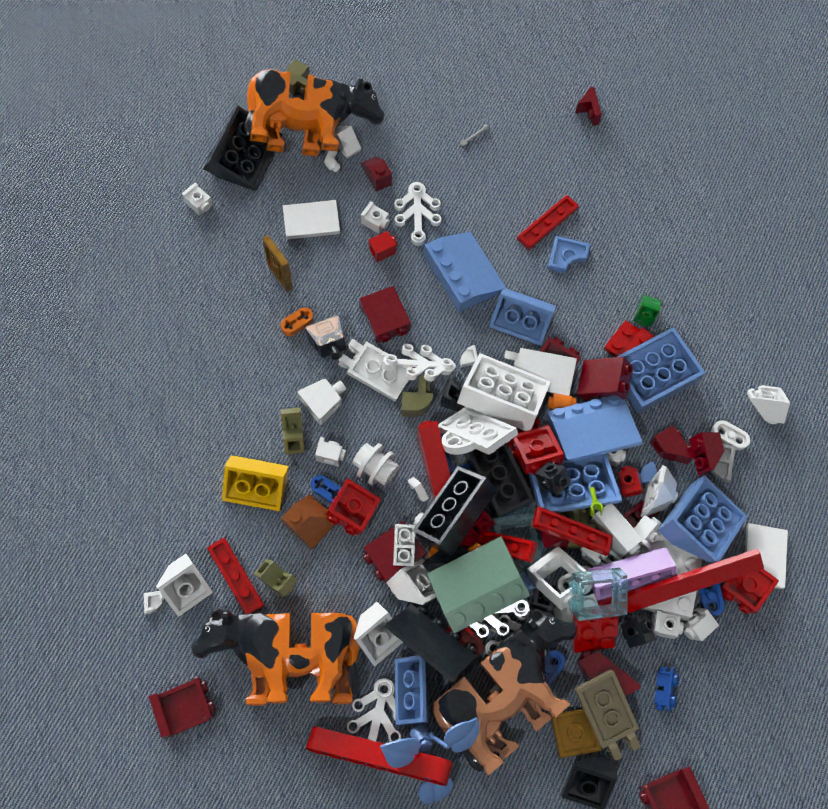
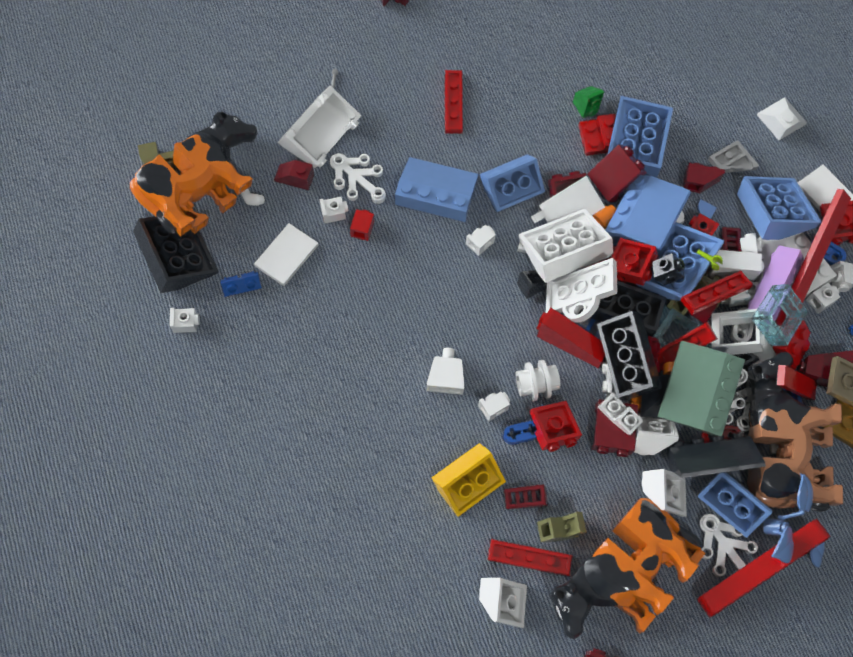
camera: 45 degrees left, 0 degrees up
(152, 602) = (494, 636): white tile -> none
(256, 209) = (235, 285): none -> blue hinge
(277, 263) = (308, 307): pearl gold tile -> none
(289, 544) = (543, 496): none -> dark red slope
(292, 431) = (454, 417): olive brick -> none
(296, 321) = (367, 337): orange beam -> none
(307, 521) = (534, 466): dark orange slope -> none
(327, 337) = (401, 326): torso -> none
(347, 141) = (248, 168): white slope -> none
(368, 369) = (457, 315): white tile -> none
(385, 314) = (421, 270): dark red panel -> none
(414, 483) = (579, 367): white tile -> none
(415, 403) = (512, 308): olive brick -> none
(428, 155) = (320, 127): none -> white windscreen
(442, 366) = (500, 267): white plant -> none
(453, 333) = (481, 239): none -> white brick
(469, 357) = (508, 245): white tile -> none
(559, 657) = (796, 382): none -> red tile
(567, 252) = (489, 111): medium blue tile -> none
(637, 631) = (817, 318): black brick -> none
(659, 492) = (729, 216): white slope -> none
(706, 450) = (731, 159): dark red slope -> none
(732, 433) = (724, 135): white plate -> none
(770, 403) = (727, 90): white slope -> none
(796, 466) = (781, 118): none -> white slope

